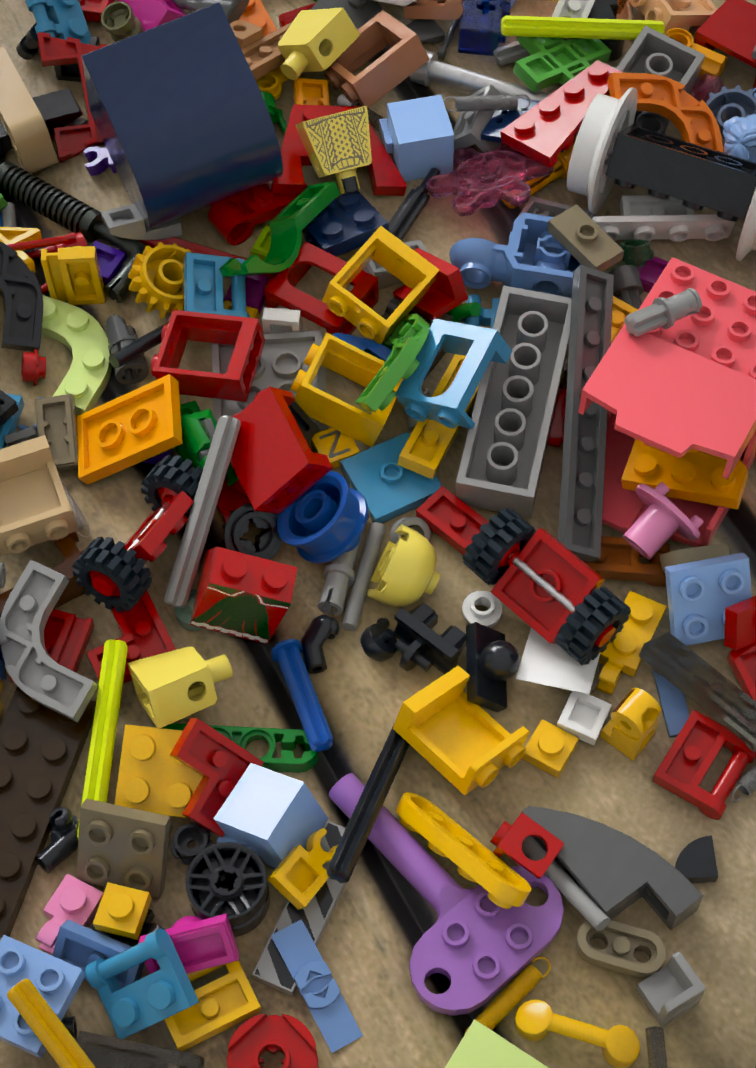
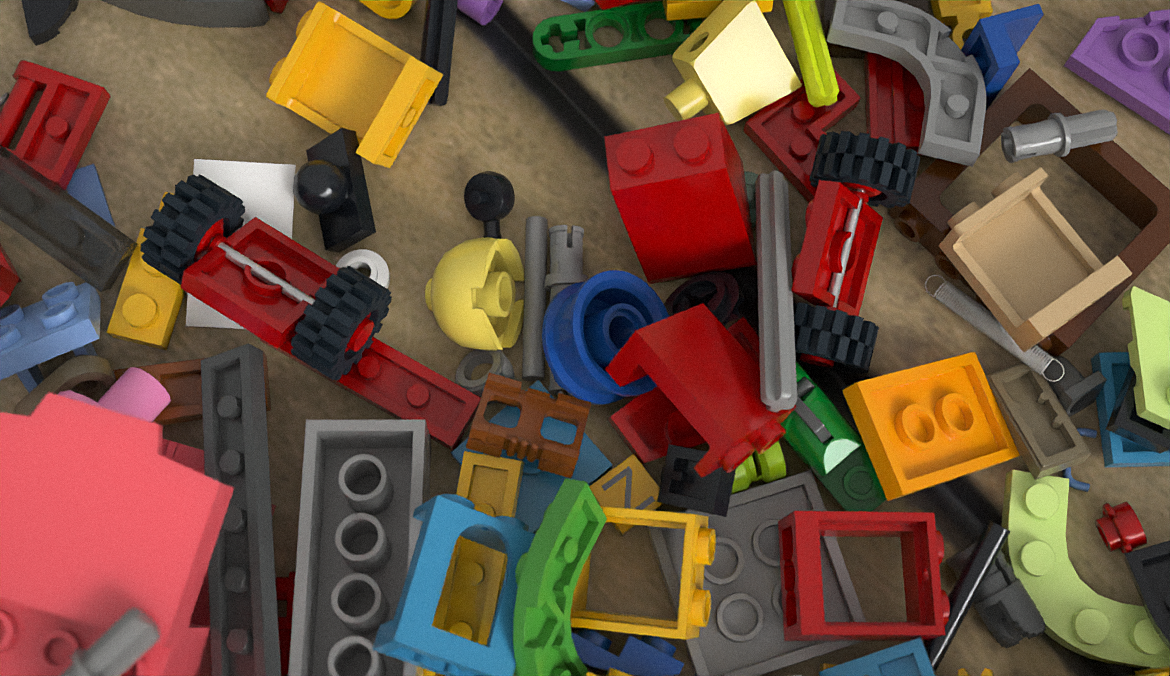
camera: 160 degrees right, 15 degrees up
(303, 694) = (563, 95): blue axle -> none
(313, 640) = (575, 188): black arm -> none
(392, 465) = (526, 436): none -> dark orange piece
(424, 646) = (444, 218): black hips -> none
(550, 748) = (242, 112): yellow plate -> none
(584, 716) = (201, 141): white plate -> none
(632, 723) = (136, 140): yellow leg -> none

